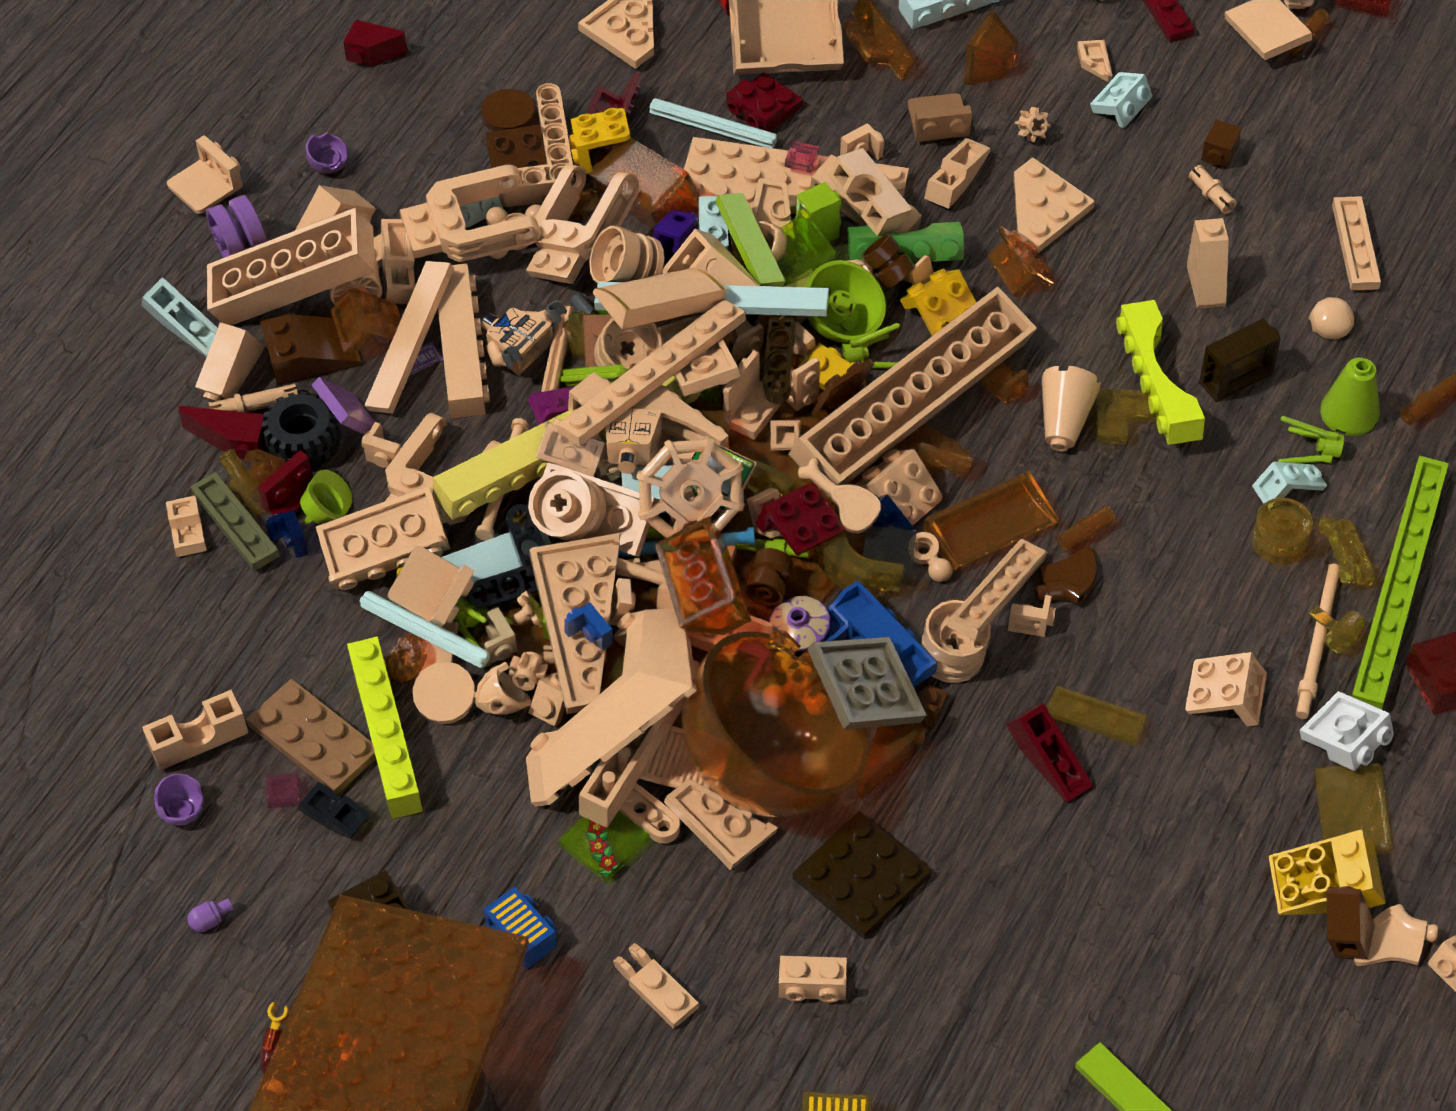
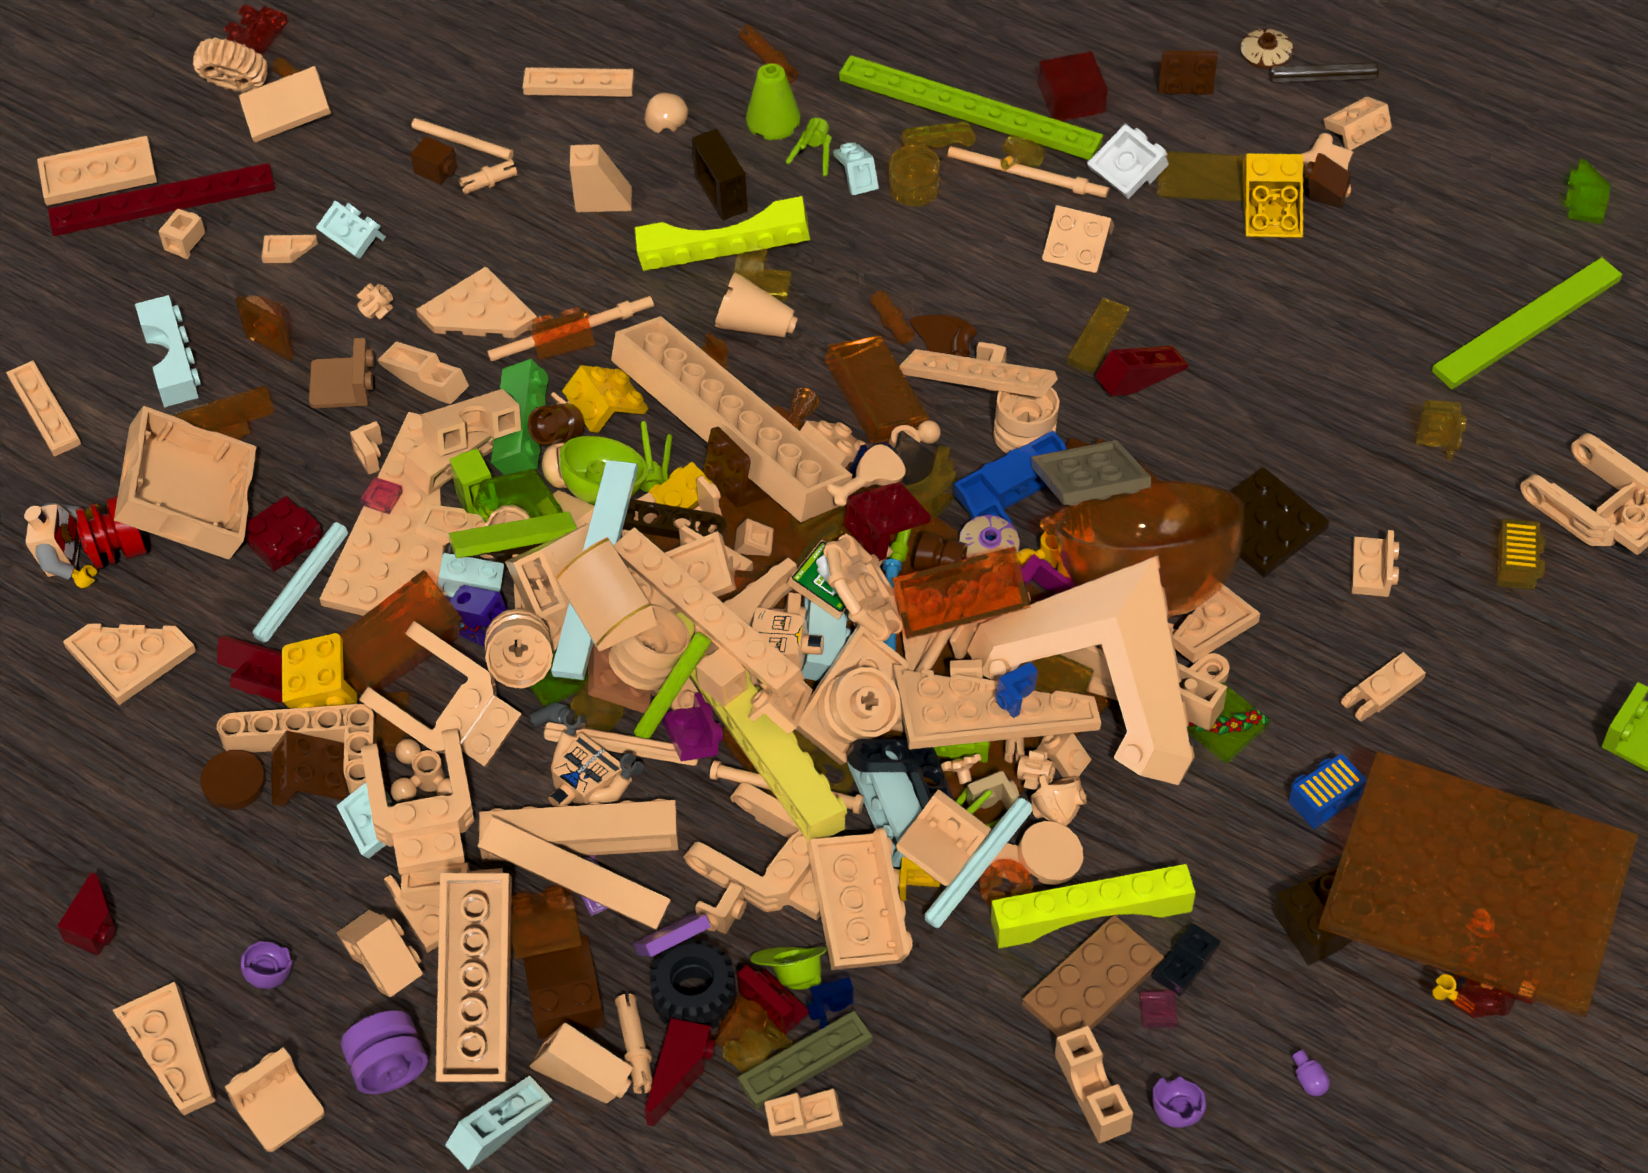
camera: 85 degrees left, 0 degrees up
(253, 113) = (168, 1044): none -> light nougat wing
(990, 1045) = (1441, 426): none -> clear yellow bracket
(1057, 310) = (623, 310): none -> light nougat bar
(1260, 166) = (462, 139): none -> light nougat bar

